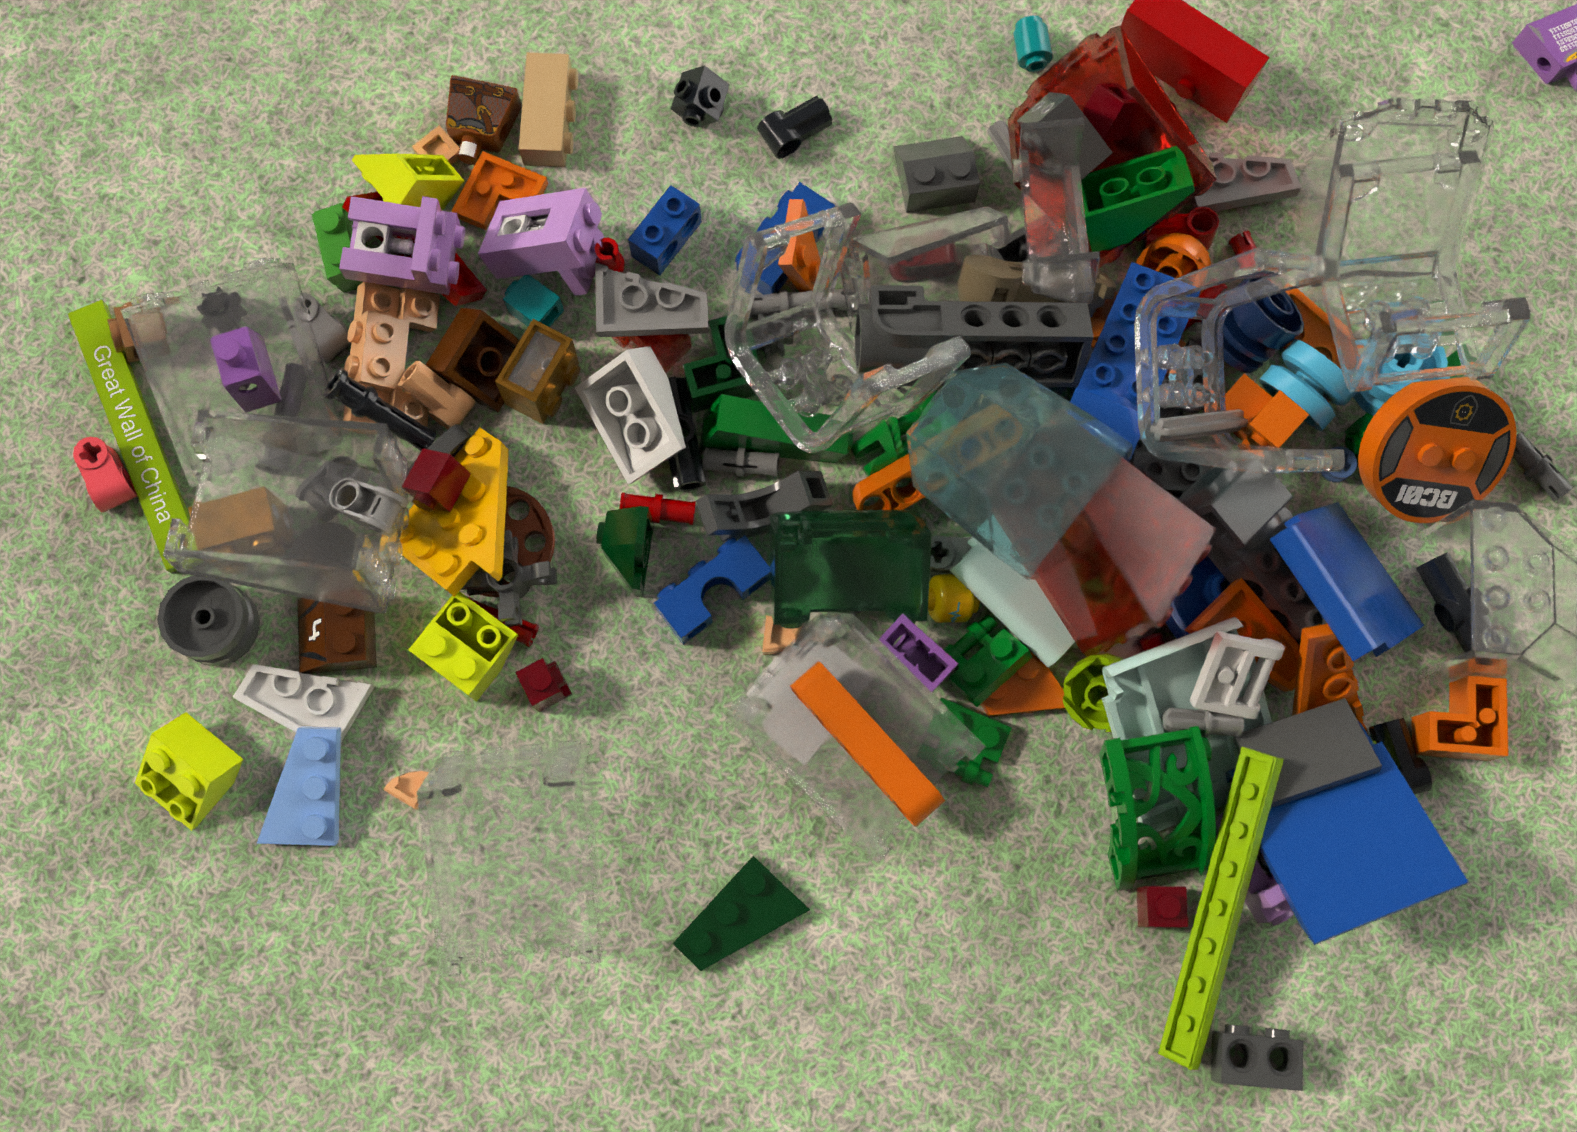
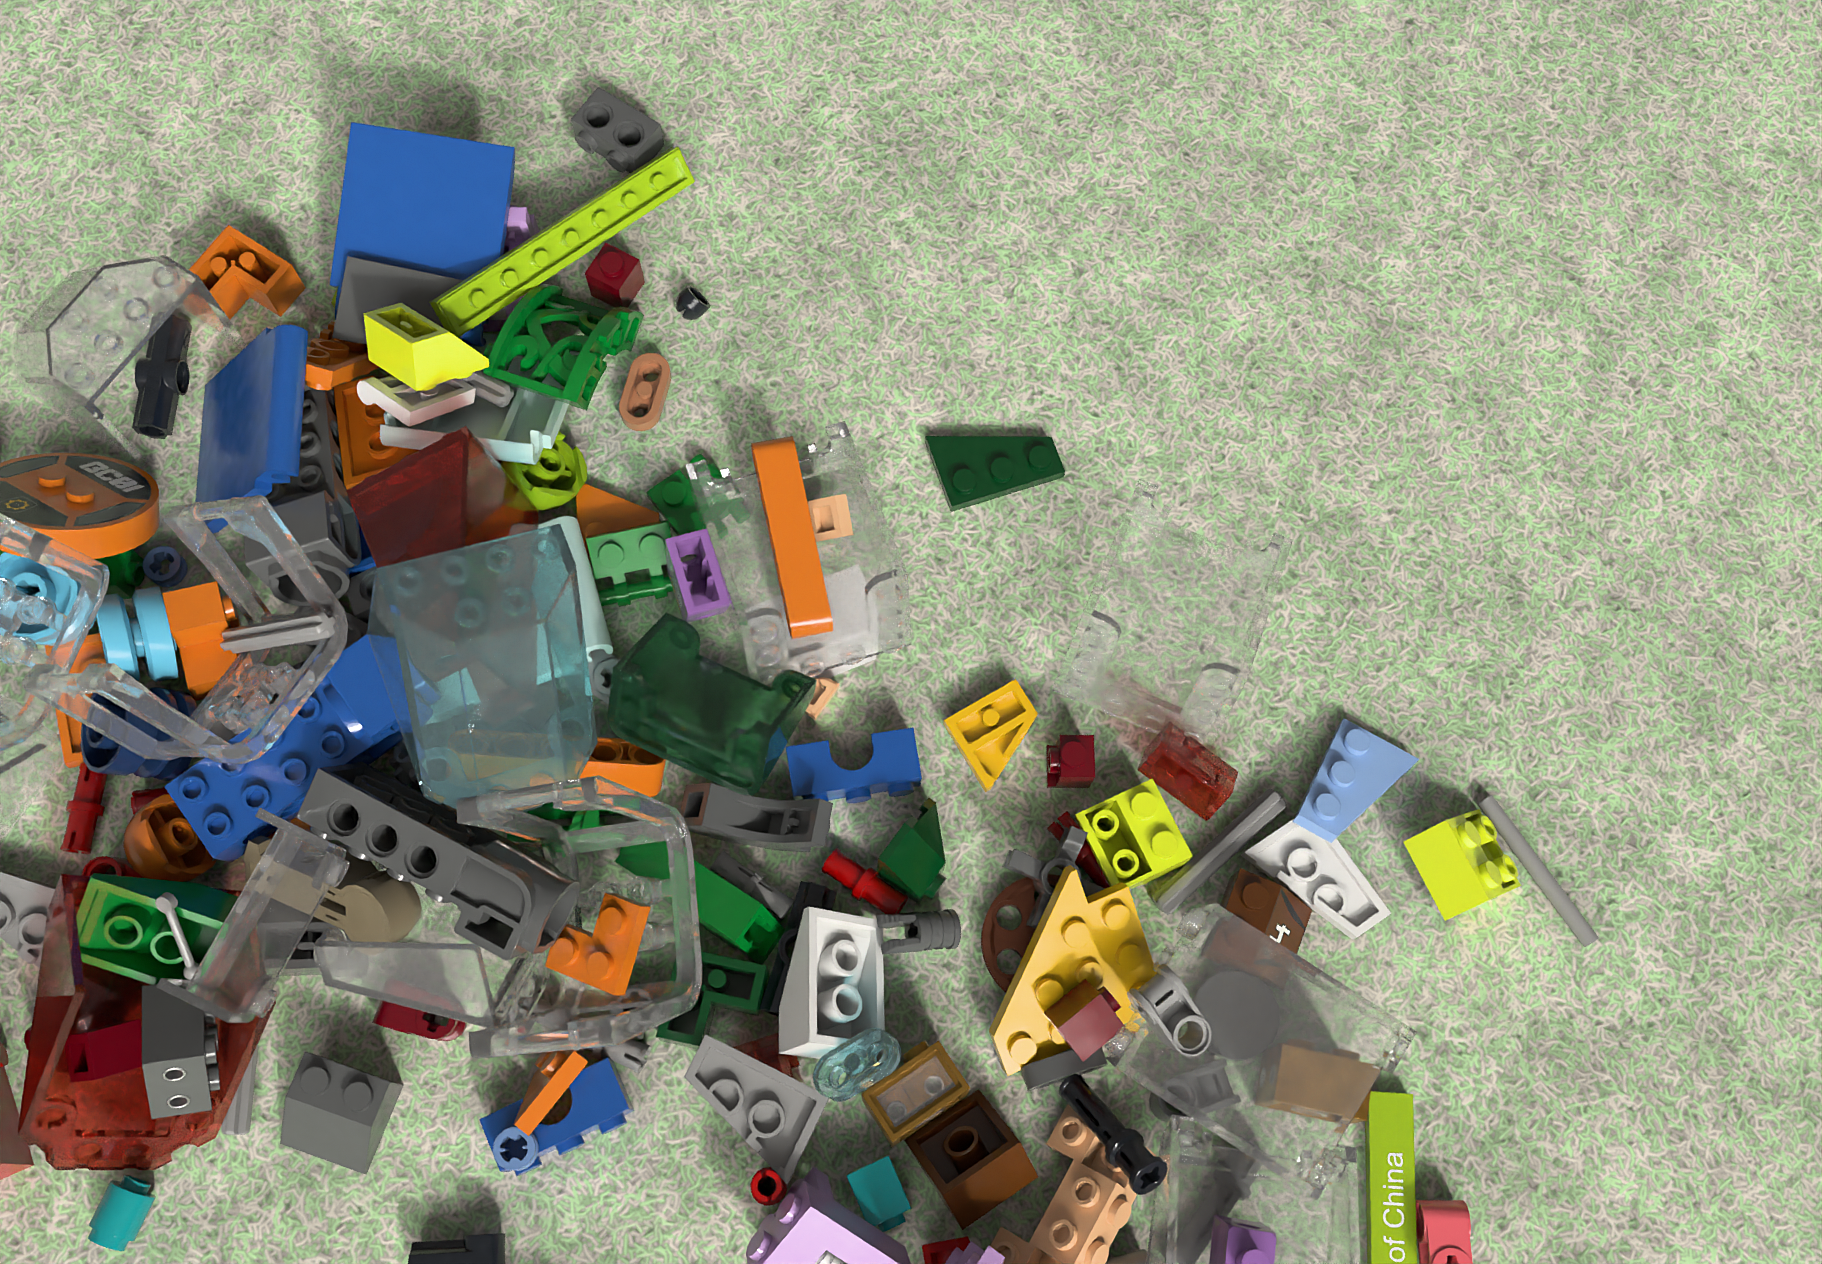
camera: 155 degrees left, 5 degrees down
(125, 802) = (1538, 871): none -> light grey bar
(208, 620) = (1404, 985): dark grey wheel -> none
(391, 682) = (1219, 851): none -> light grey axle
(406, 787) = (1245, 737): light nougat tile -> none
(443, 723) = (1188, 771): none -> clear red brick
(444, 401) = (1038, 1132): light nougat piece -> none
(584, 358) = (860, 1063): none -> clear light blue plate
(593, 493) = (922, 931): none -> dark grey hinge
(620, 679) = (992, 730): none -> yellow wing
(665, 230) = (682, 1202): blue brick -> none
(793, 185) = (515, 1163): none -> medium blue bush
(814, 345) = (607, 954): none -> orange plate
(844, 774) = (830, 517): none -> light nougat tile
(950, 600) = (626, 627): yellow head -> none
(1072, 816) = (645, 394): none -> nougat plate
(1082, 926) = (693, 302): none -> black hinge
(1088, 183) = (167, 903): none -> light grey hinge
(1257, 708) = (417, 348): none -> neon yellow slope
(1399, 745) = (314, 298): black piece -> none

